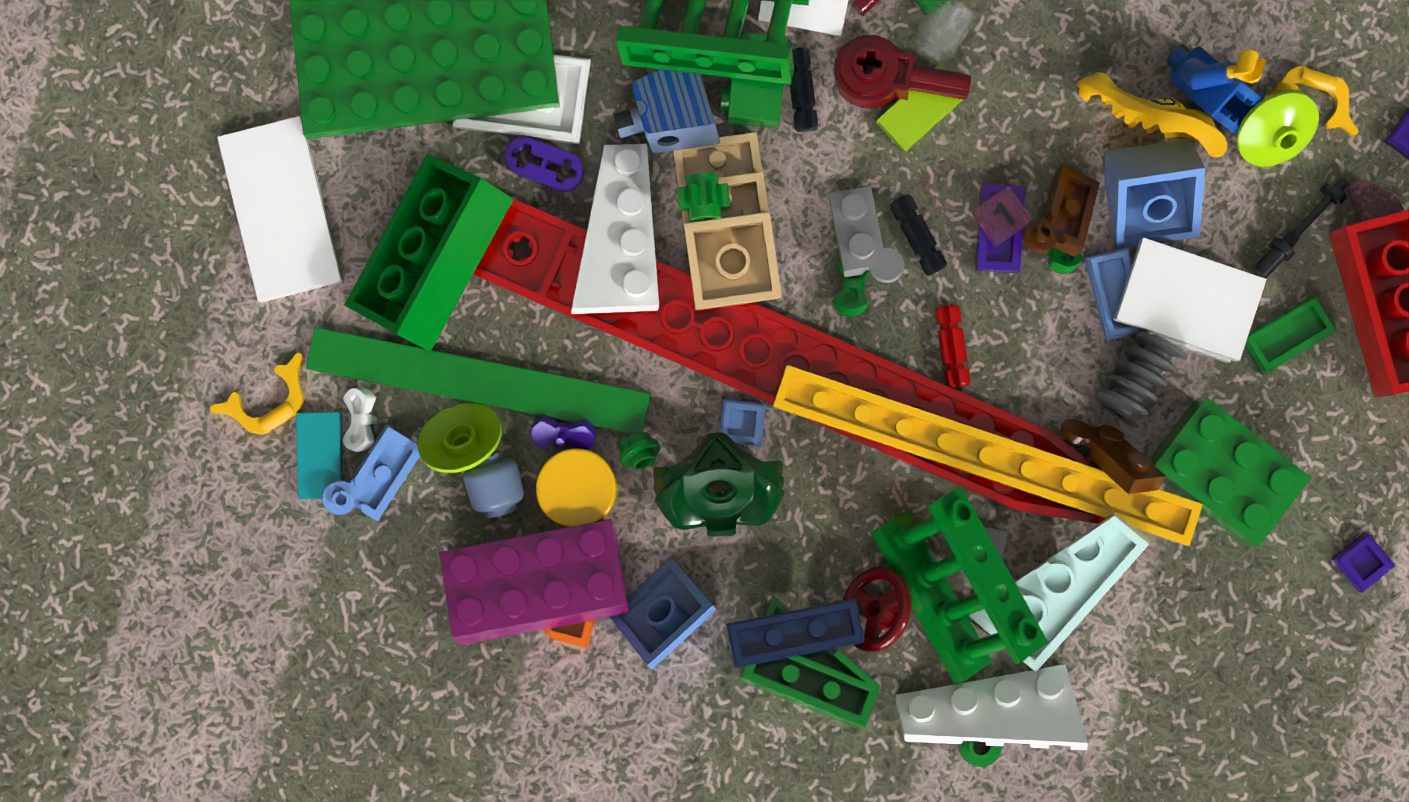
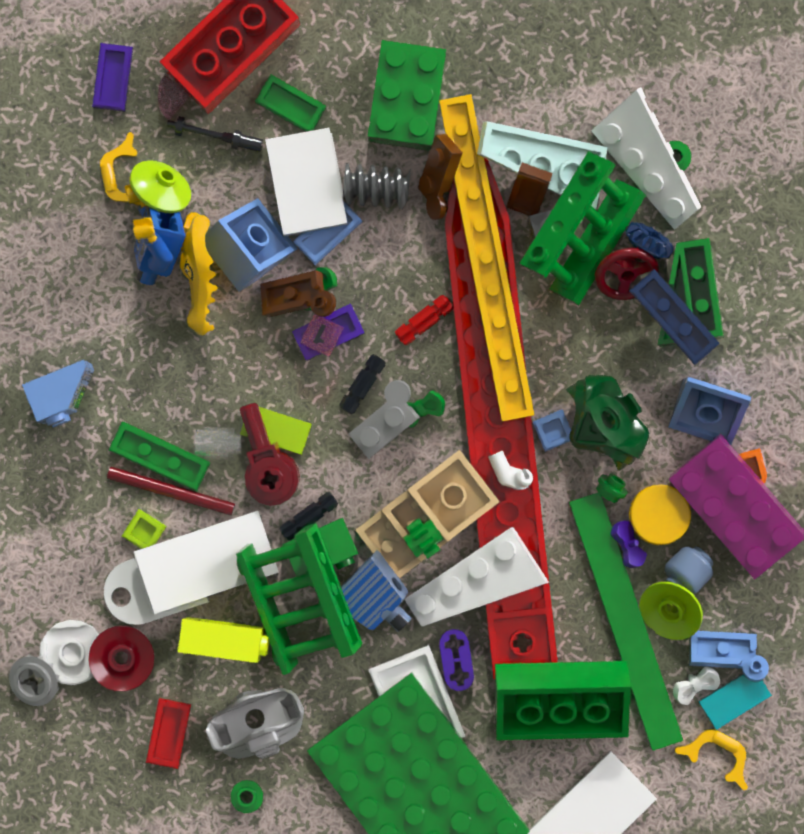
camera: 120 degrees left, 0 degrees up
(719, 339) = (508, 475): none -> white arm
(899, 657) = (649, 240): none -> dark blue gear
(1039, 550) = (529, 189): none -> reddish brown tile

